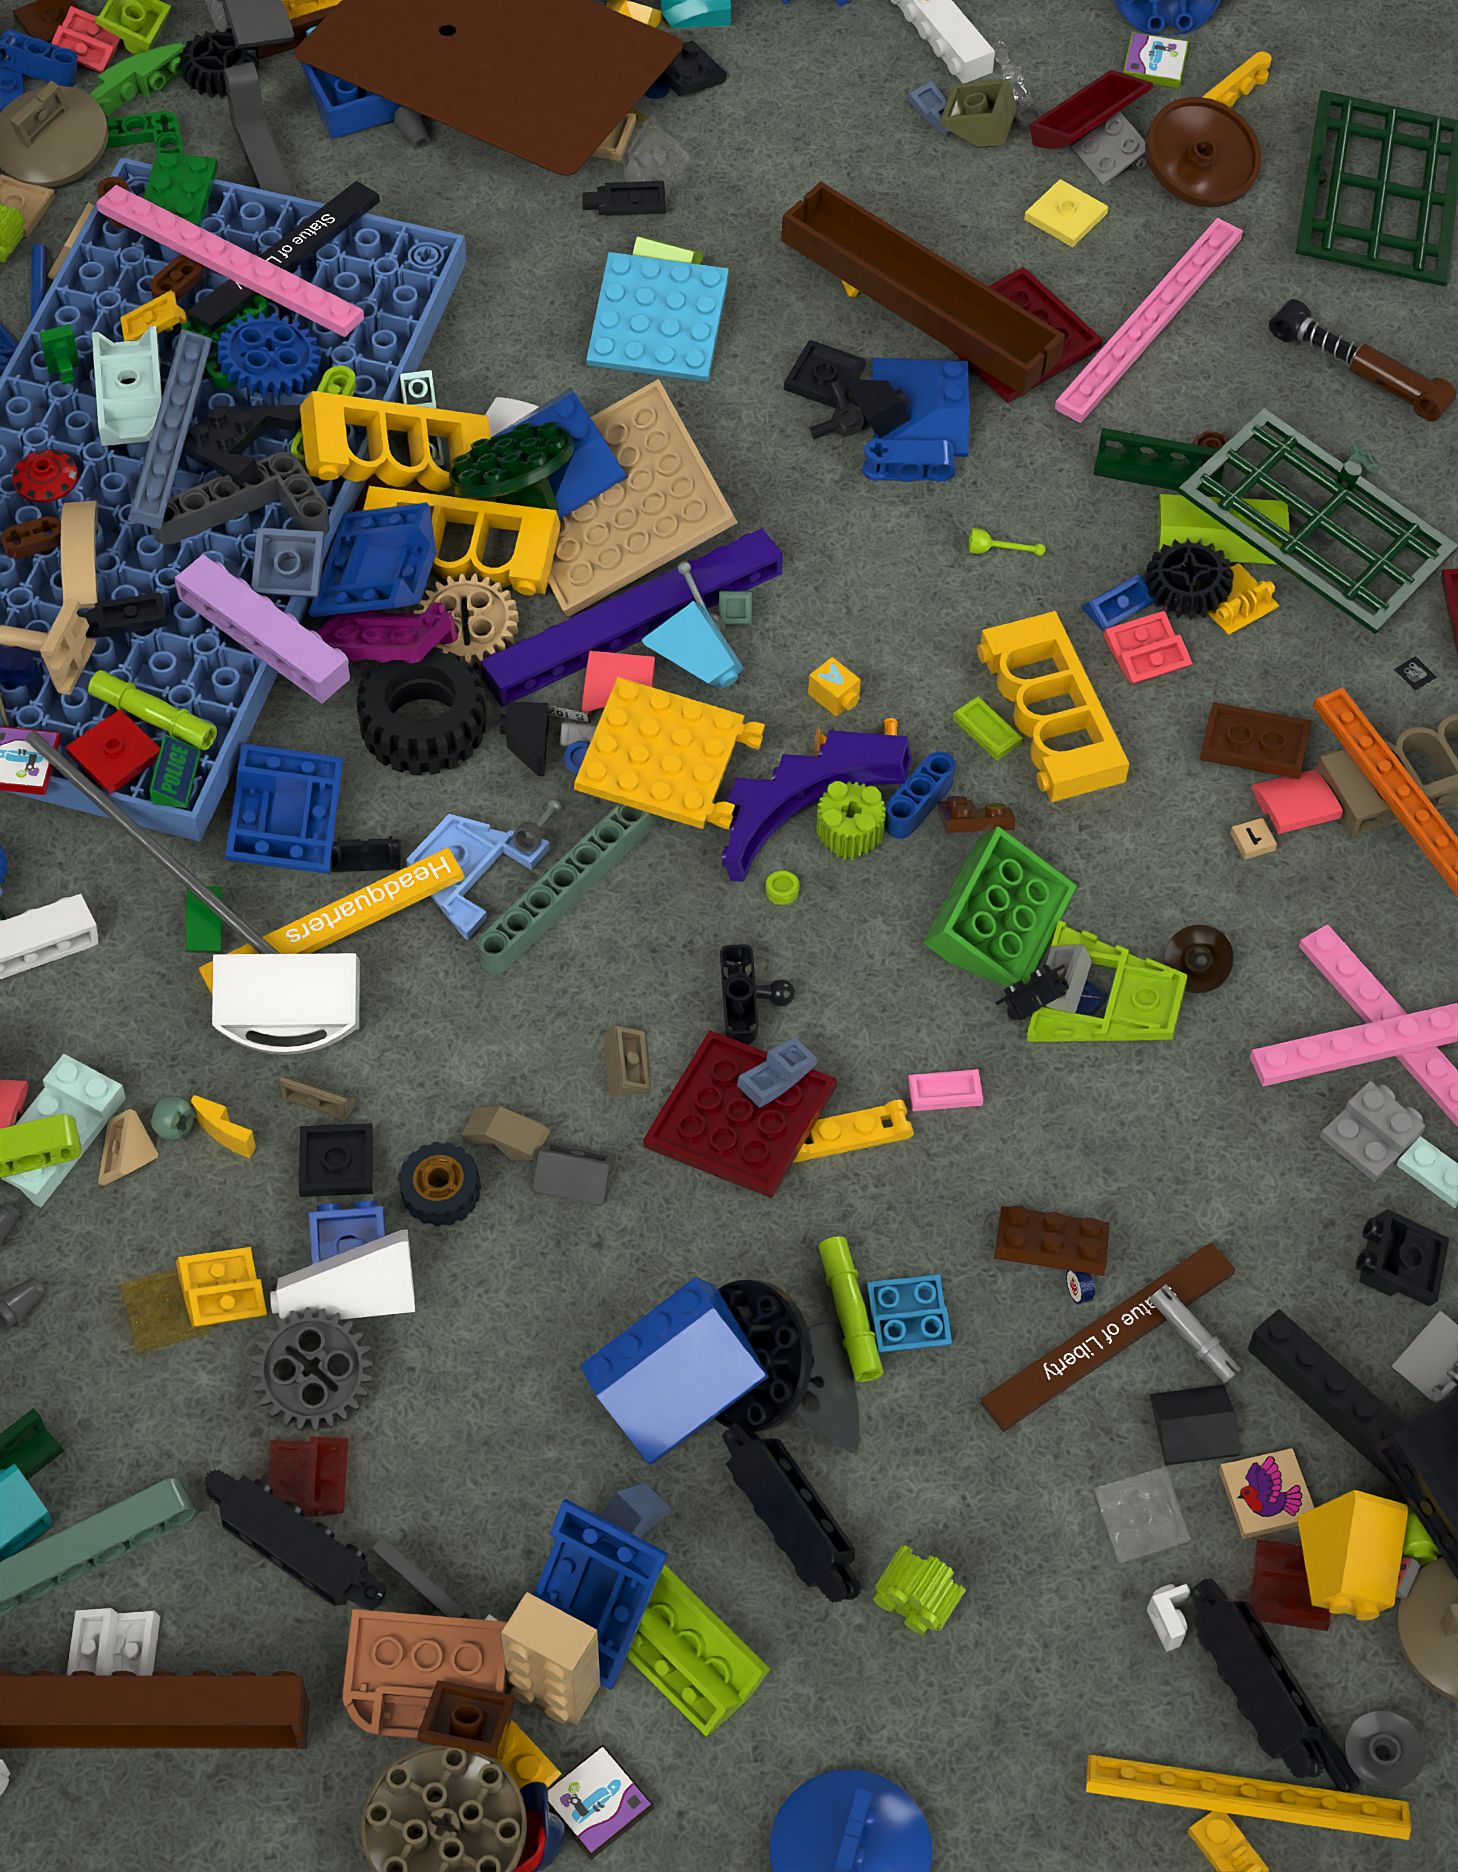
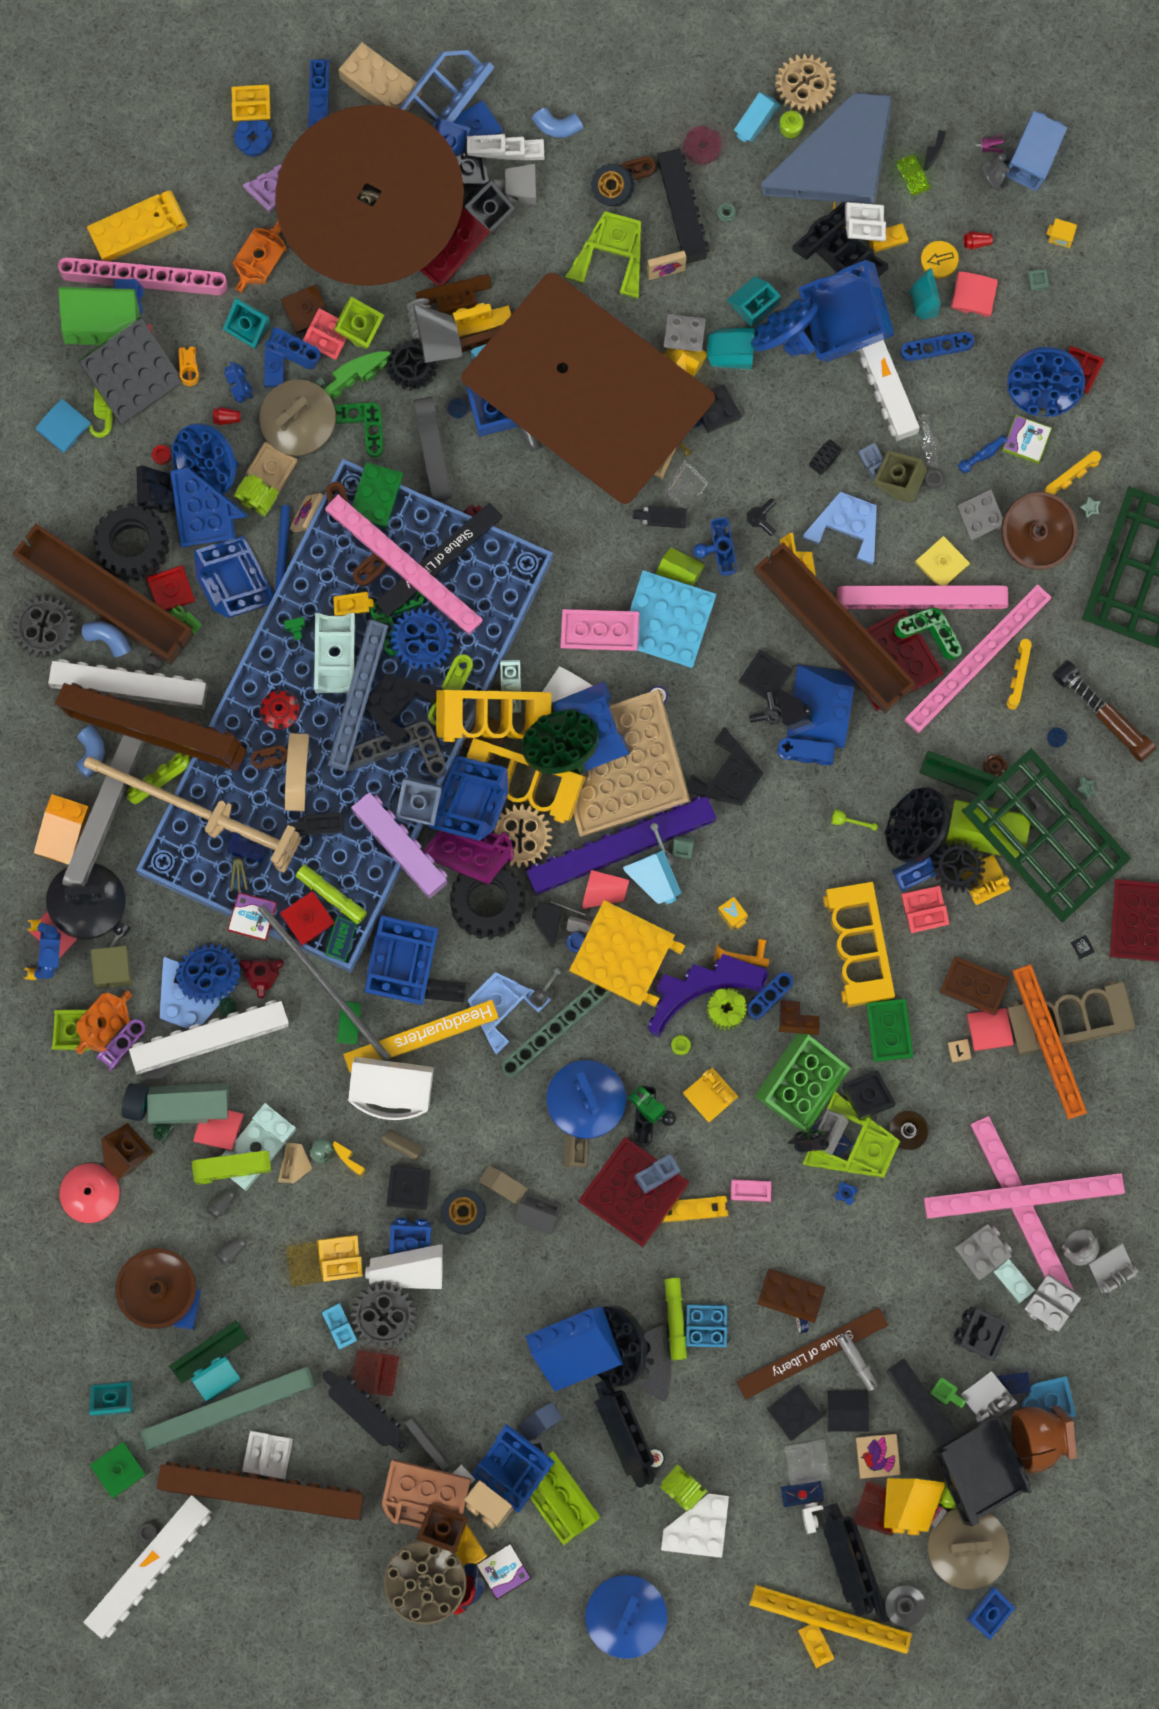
camera: 10 degrees right, 20 degrees up
(44, 865) = (261, 973): none -> dark red rock
(231, 1404) = (339, 1326): none -> medium azure slope
(295, 109) = (457, 408): none -> clear blue tile
(554, 338) = (600, 630): none -> bright pink plate
(633, 982) = (586, 1099): none -> blue bracket
(727, 223) = (723, 558): none -> blue piece
(742, 966) = (647, 1104): none -> green leg
(773, 184) = (757, 517): none -> black piece
(802, 508) = (734, 779): none -> black wing
(846, 952) = (710, 1094): none -> yellow hinge
(862, 99) = (825, 457): none -> black tyre
(863, 1553) = (659, 1458): none -> tile
(915, 175) = (849, 517): none -> light blue wing
(961, 1669) = (699, 1529): none -> white plate
(987, 728) = (818, 952): lime tile -> none
(1063, 250) = (923, 597): none -> bright pink beam
(1069, 278) = (934, 626): none -> green beam
(1087, 109) = (972, 485): dark red slope -> none
(1098, 1439) = (794, 1412): none -> black plate
(1112, 524) = (918, 826): none -> black bracket
(1115, 1063) = (843, 1187): none -> blue plate
(1116, 60) = (988, 451): none -> blue piece
(1117, 914) = (868, 1095): none -> black plate
(1130, 821) = (889, 1030): none -> green plate
(1141, 1577) = (802, 1494): none -> clear blue tile
(1220, 321) = (1021, 667): none -> yellow plate
(1270, 124) = (1090, 506): none -> sand green piece
(1297, 405) = (1056, 737): none -> clear blue tile
(1368, 1366) = (945, 1392): none -> bright green plate

